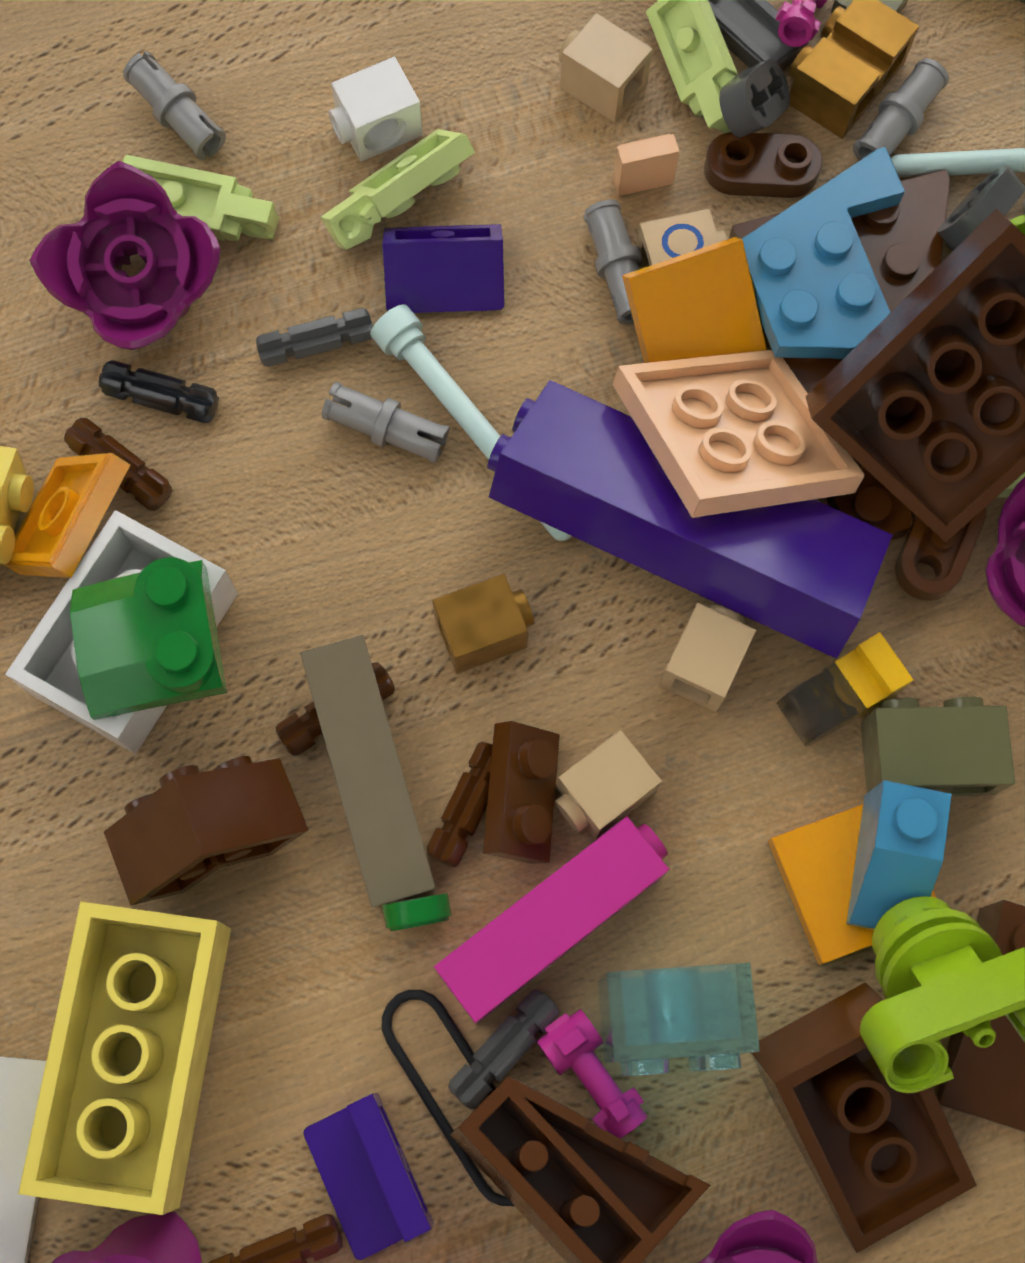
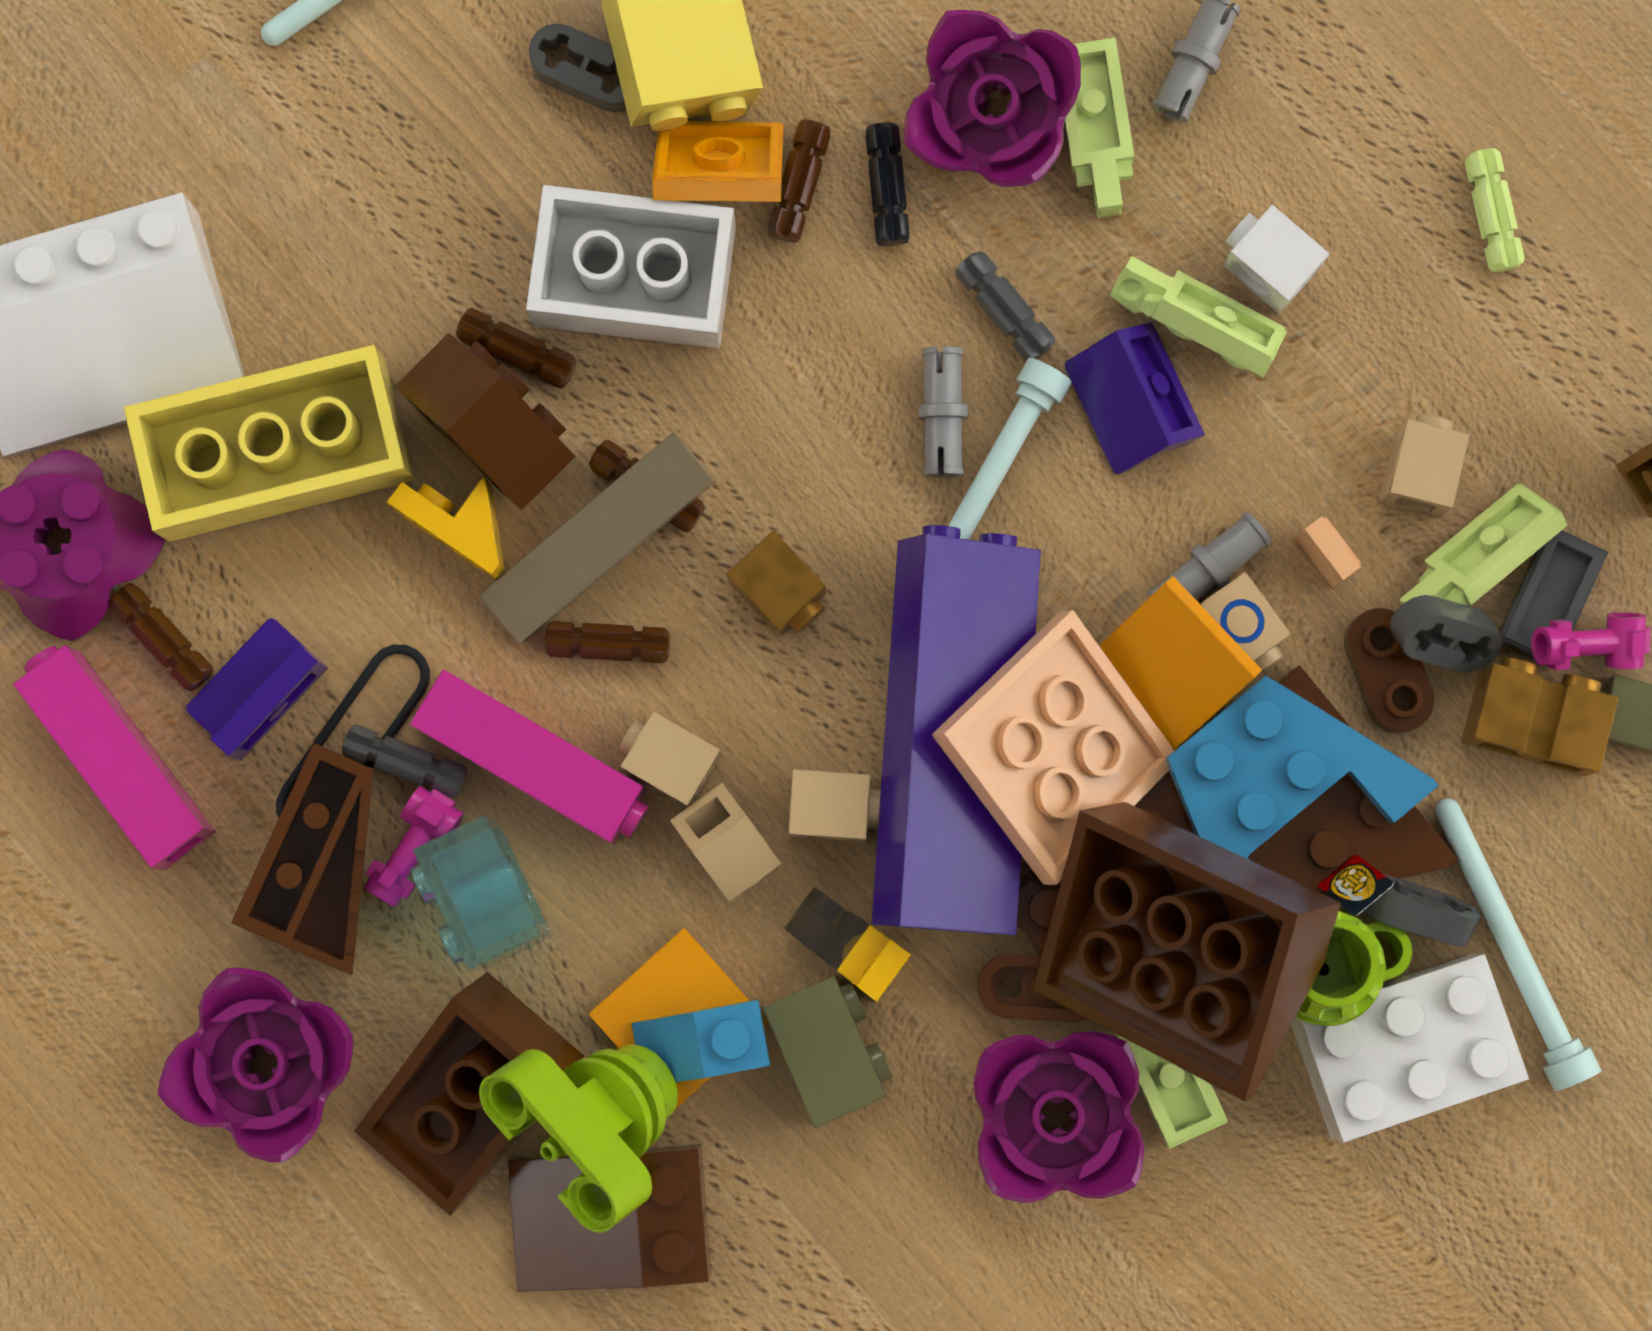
camera: 70 degrees right, 10 degrees up
(143, 779) = (516, 348): none -> reddish brown axle
(147, 639) = (621, 294): green slope -> none
(311, 893) = (469, 534): none -> yellow slope
(417, 912) = (490, 636): green tile -> none
(521, 793) = (633, 685): reddish brown plate -> none
(707, 761) = (725, 842): none -> tan brick
(903, 110) = (1506, 791): light grey pin -> none
(945, 237) = (1355, 885): none -> sticker

